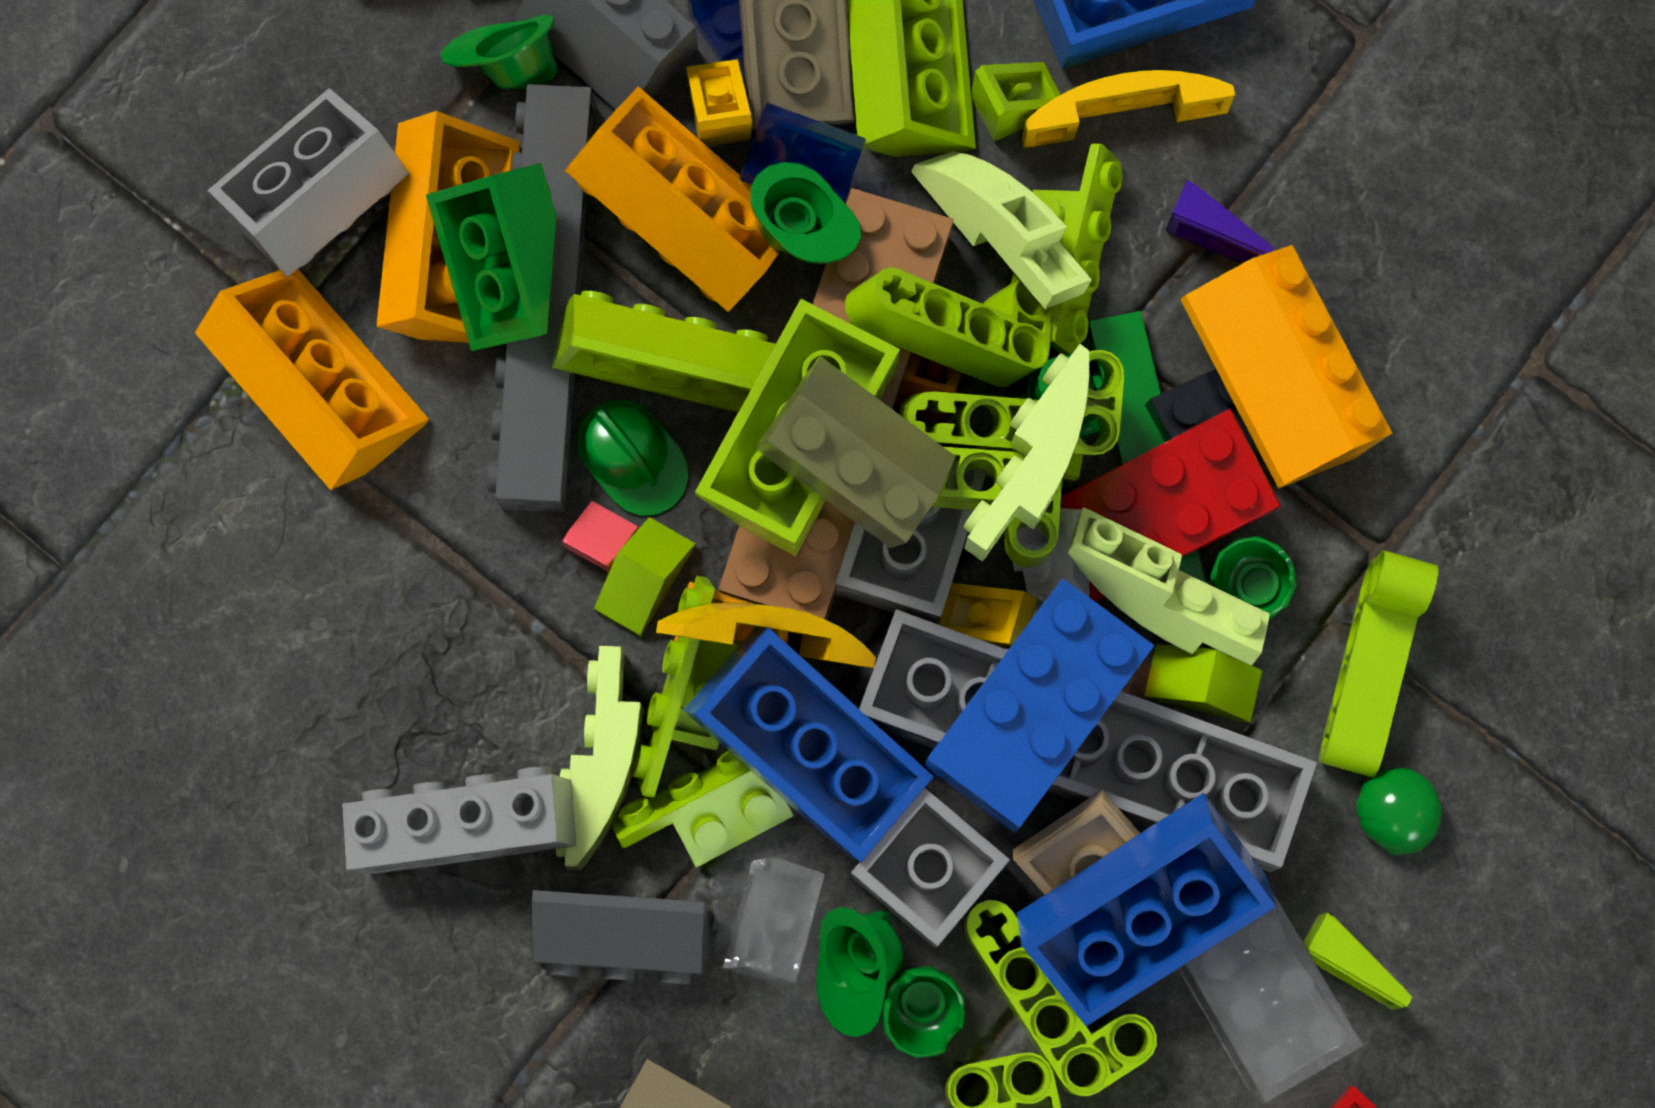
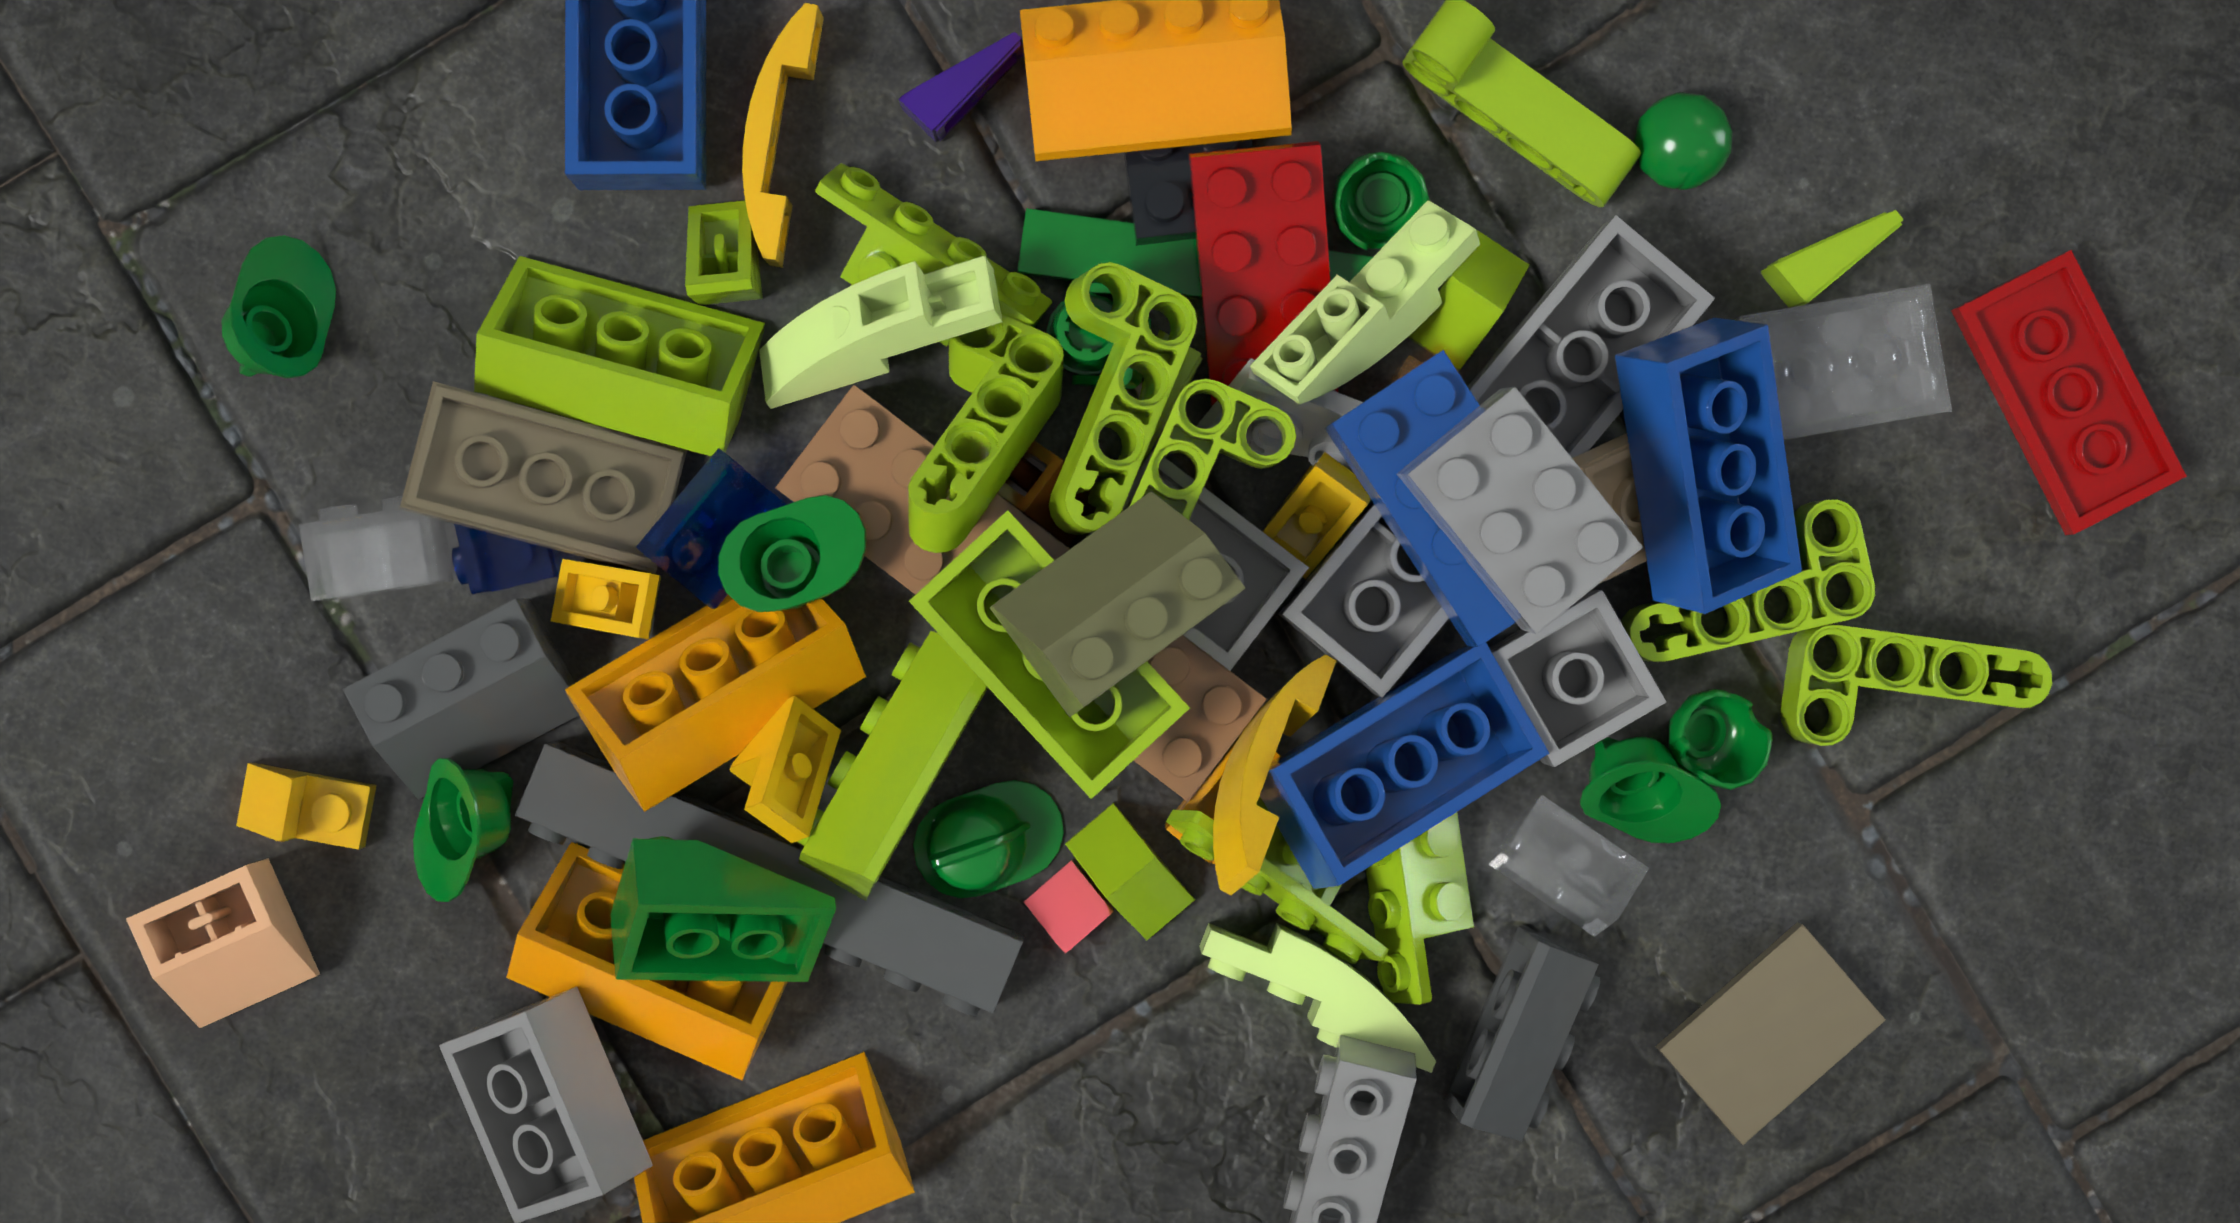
camera: 65 degrees left, 10 degrees up
(636, 268) = (788, 768): none -> yellow slope
(1047, 440) = (1171, 378): yellowish green slope -> none
(1049, 740) = (1519, 510): none -> light grey brick

